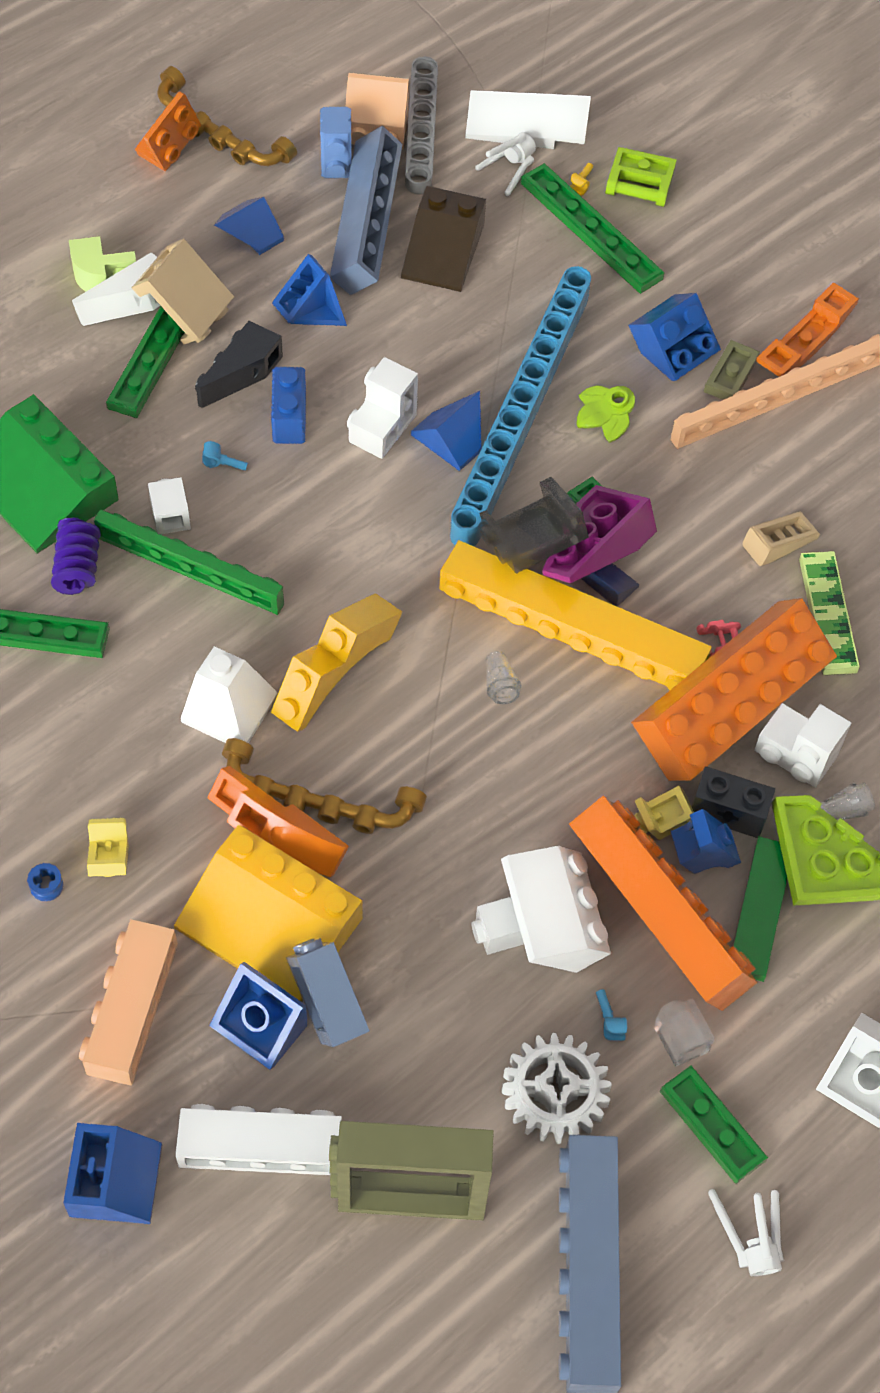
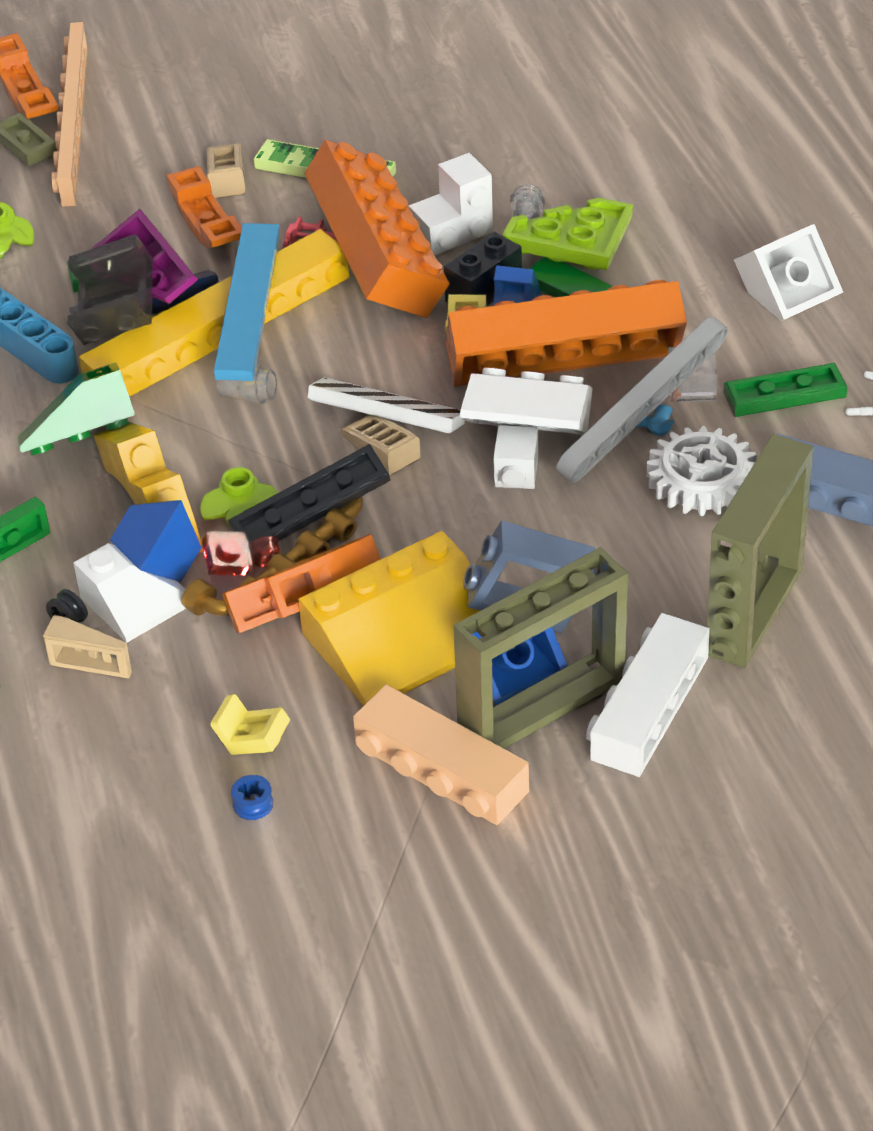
camera: 60 degrees left, 15 degrees down
(112, 1174) = (627, 820): blue slope -> none
(149, 686) = (85, 649): none -> tan slope
(185, 665) = (67, 606): none -> black bush
(216, 1033) = (521, 618): none -> olive window
(261, 694) = (158, 538): none -> blue slope
(288, 753) = (232, 555): none -> clear red plate
(360, 735) = (235, 494): none -> lime plate
(373, 784) = (313, 497): none -> black tile
(394, 573) = (85, 404): none -> slope
(472, 831) = (392, 443): none -> tan slope
(525, 789) = (385, 405): none -> white tile
(581, 631) = (247, 302): none -> dark azure tile
(610, 1002) = (642, 399): none -> light grey beam
(708, 549) = (201, 210): none -> orange slope

